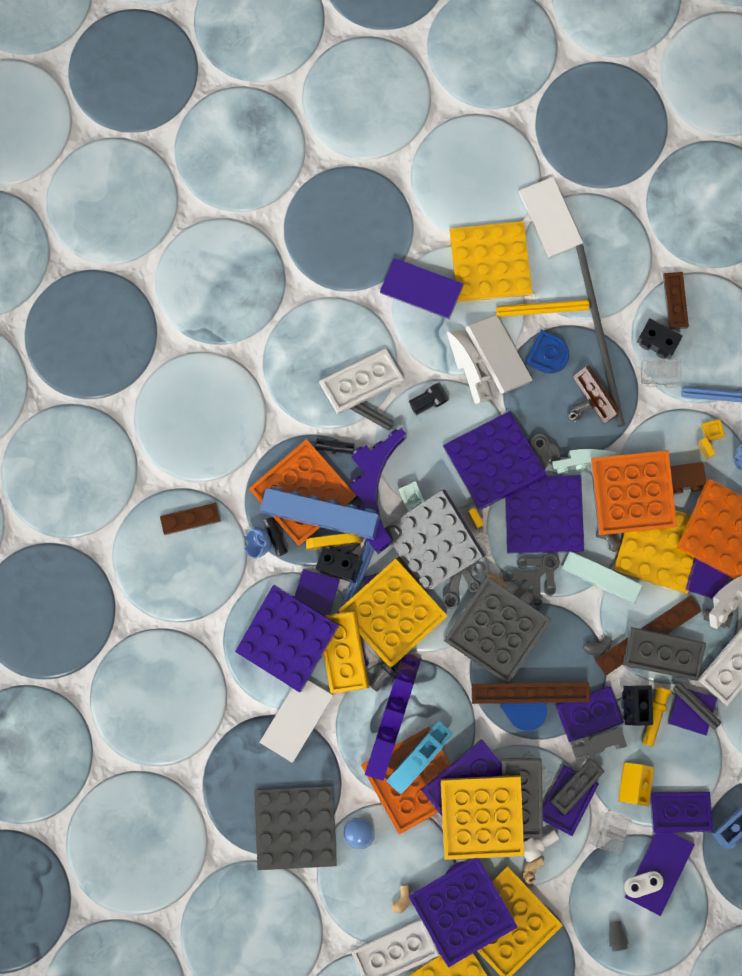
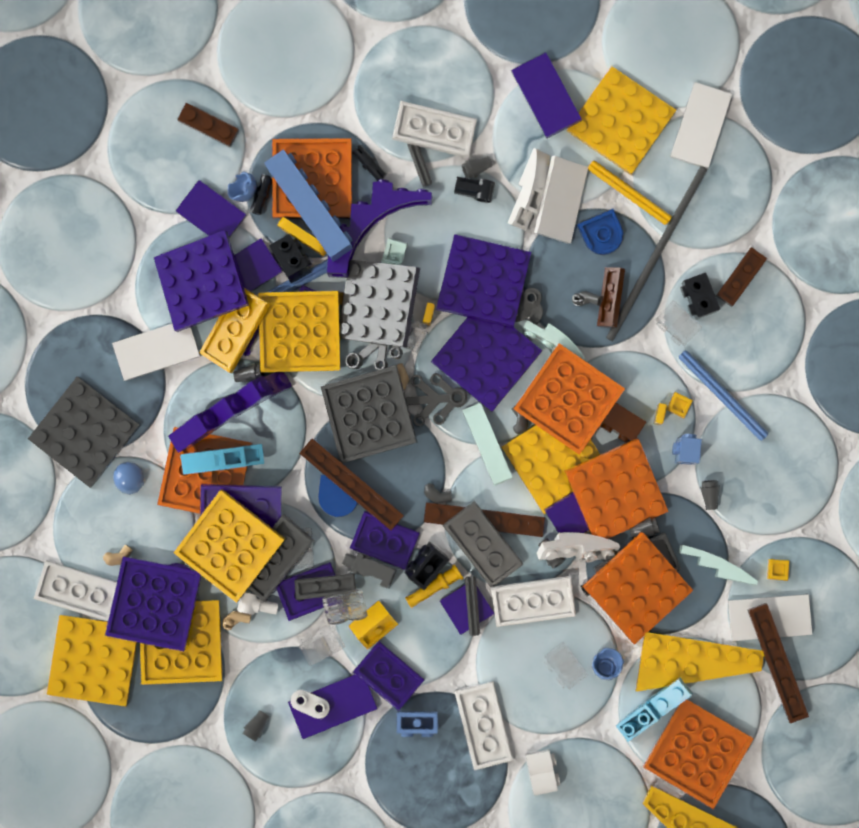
camera: 45 degrees right, 5 degrees up
(247, 581) = (210, 211): none -> dark purple tile
(415, 383) = (475, 167): none -> dark grey cone
(605, 788) = (345, 607): none -> clear brick

